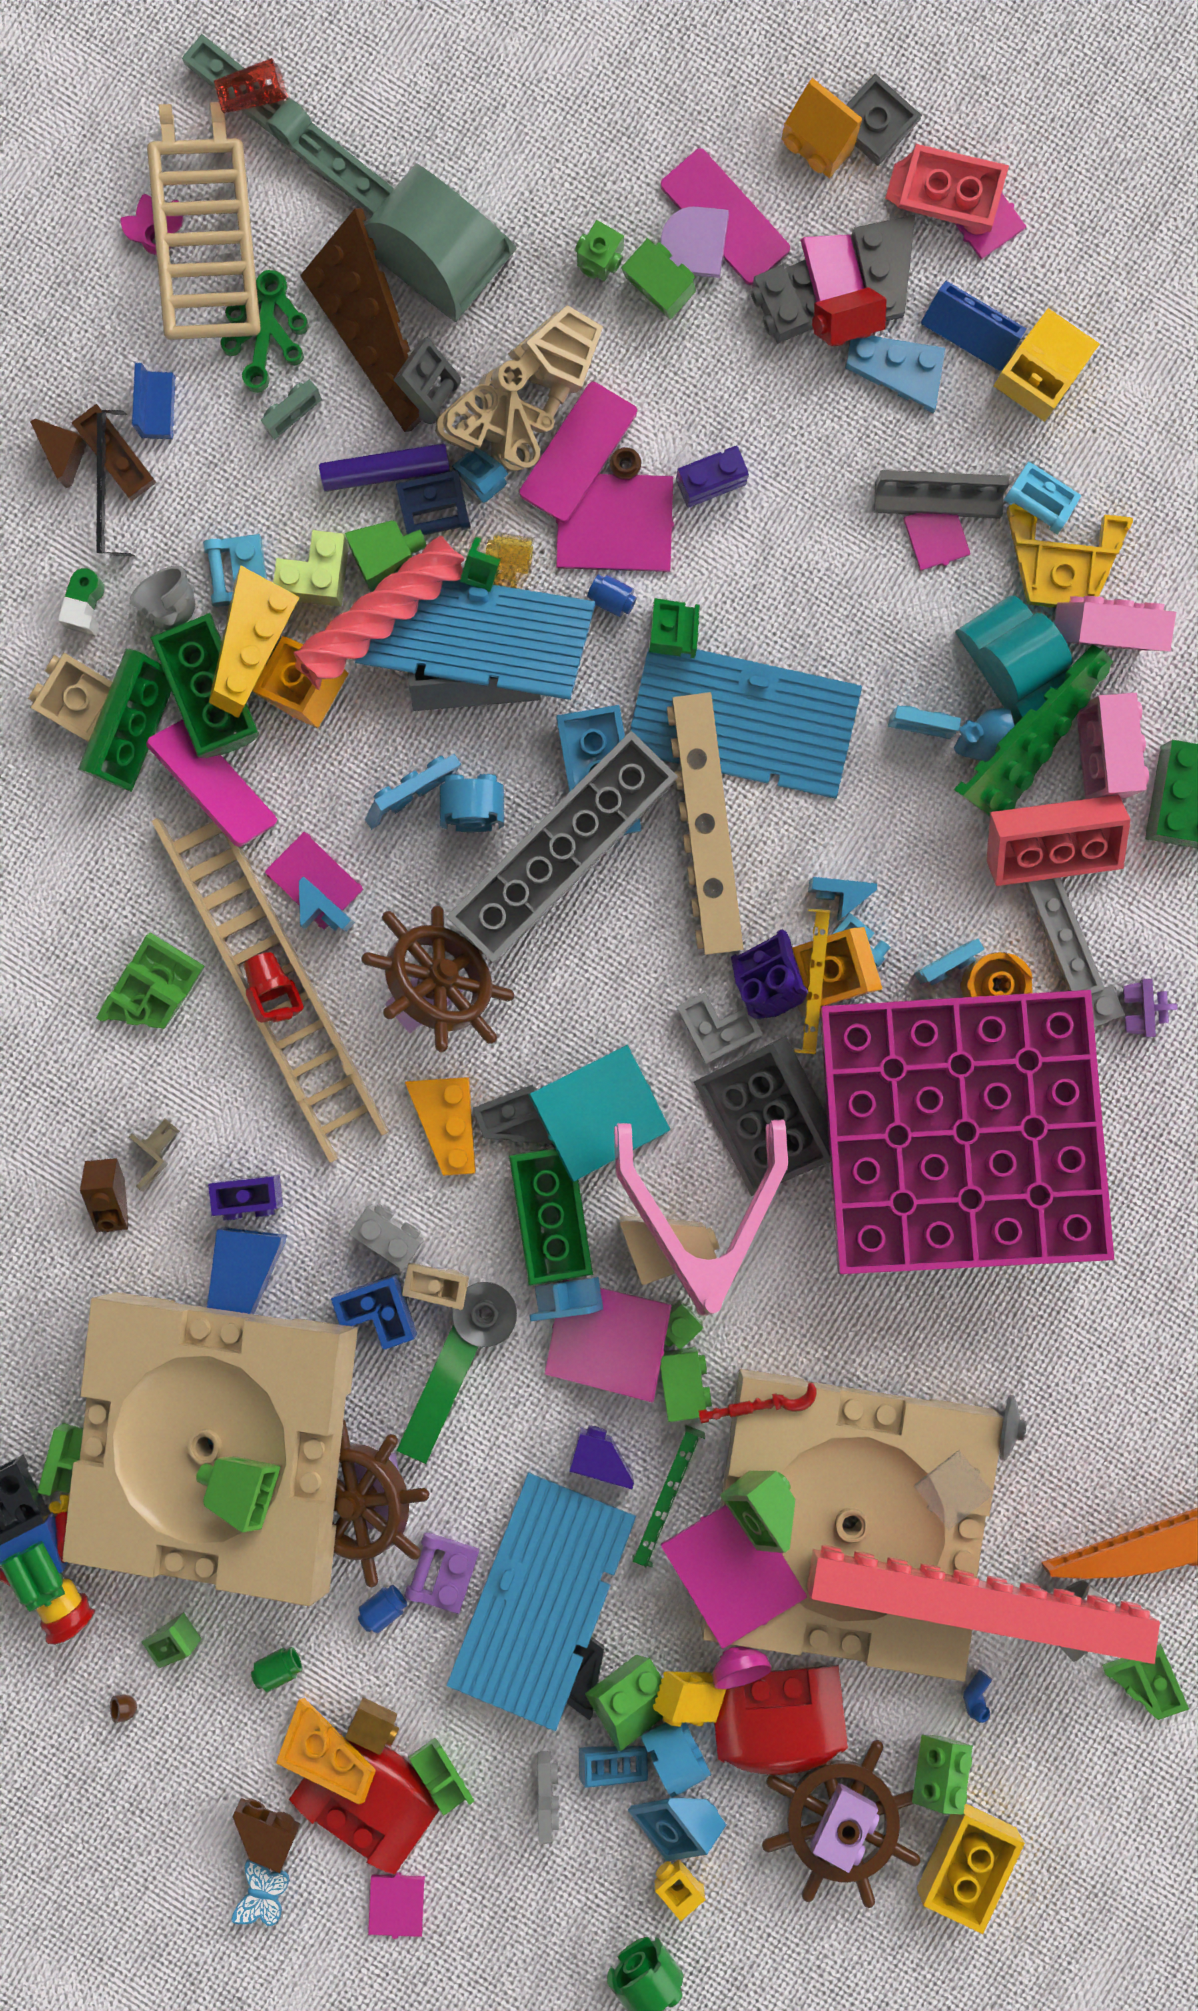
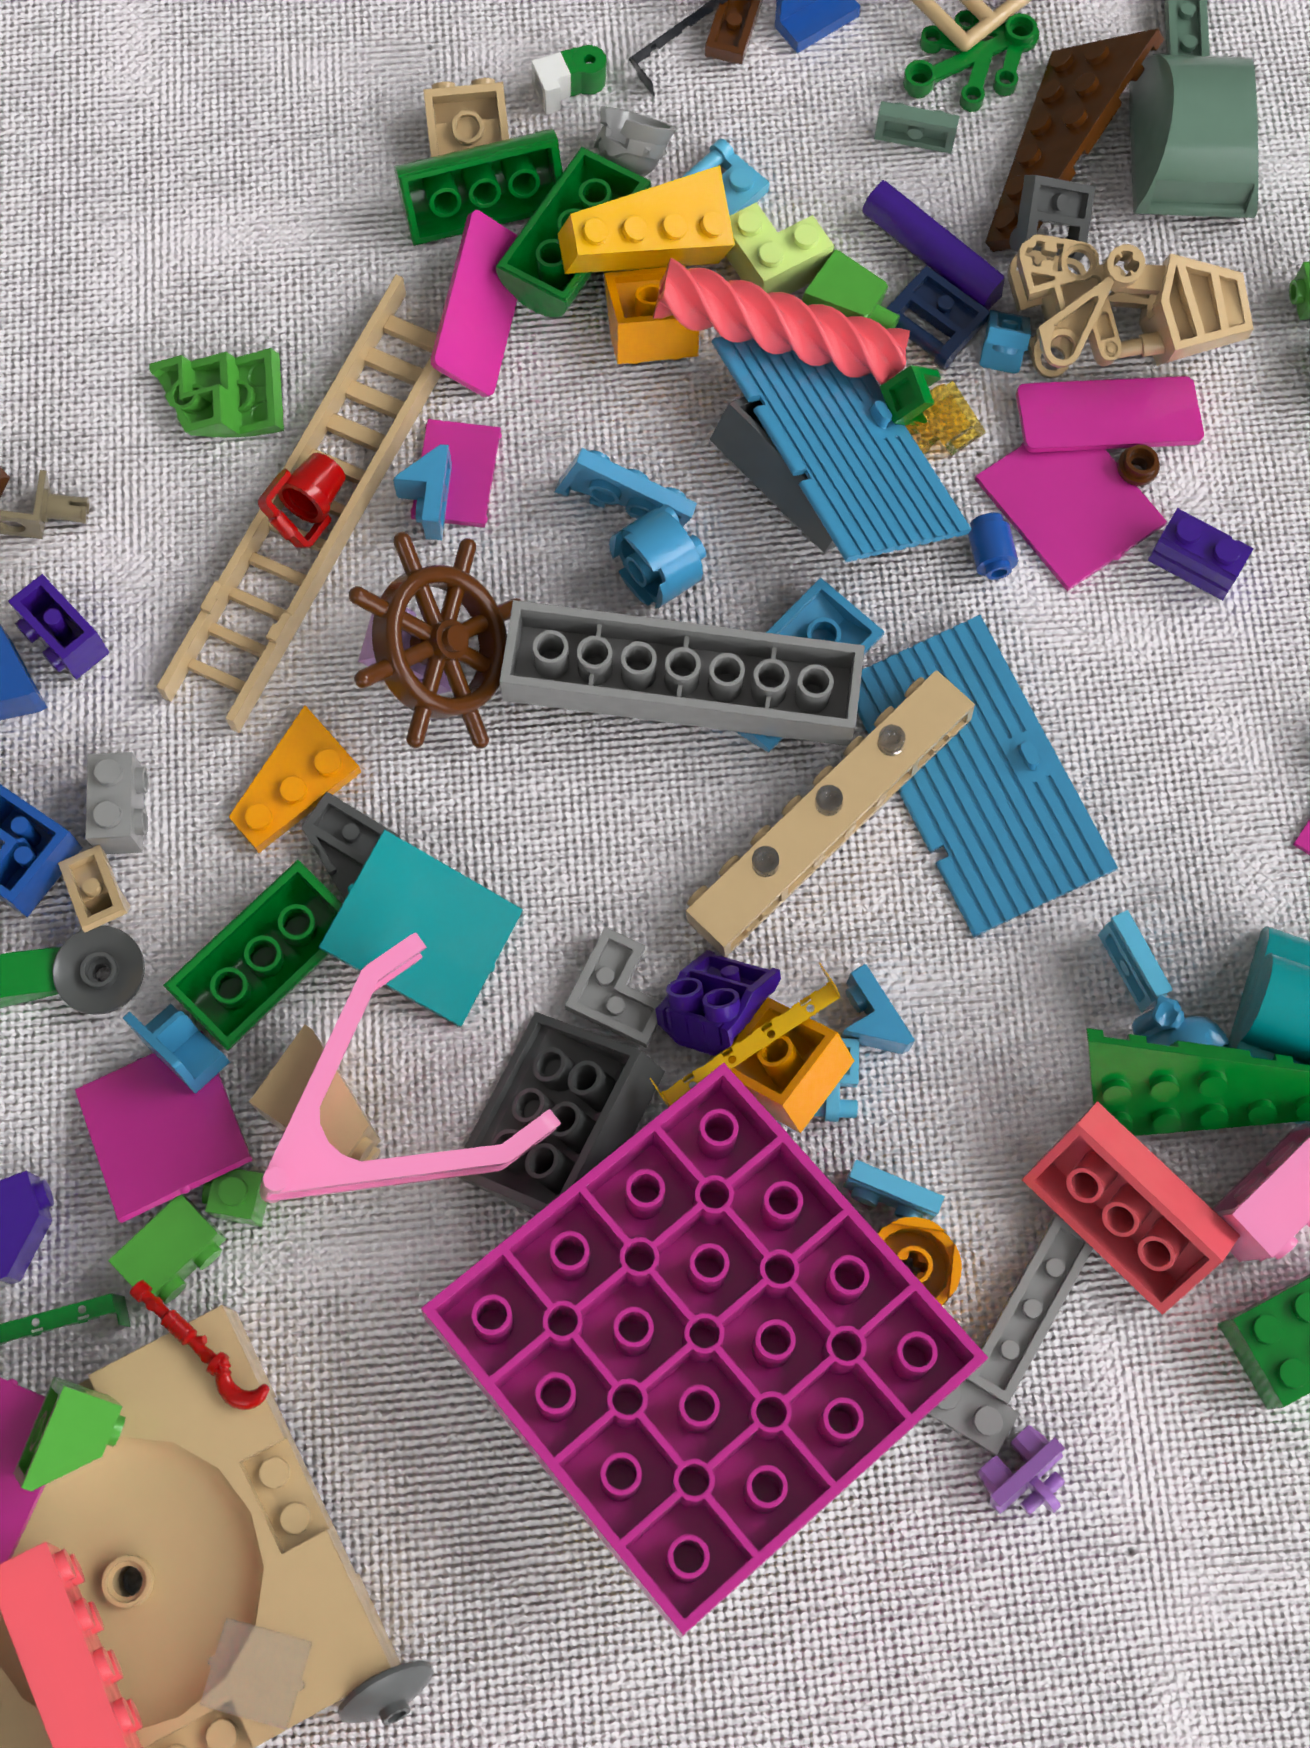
camera: 55 degrees right, 15 degrees down
(674, 628) = (1010, 627): green plate -> none

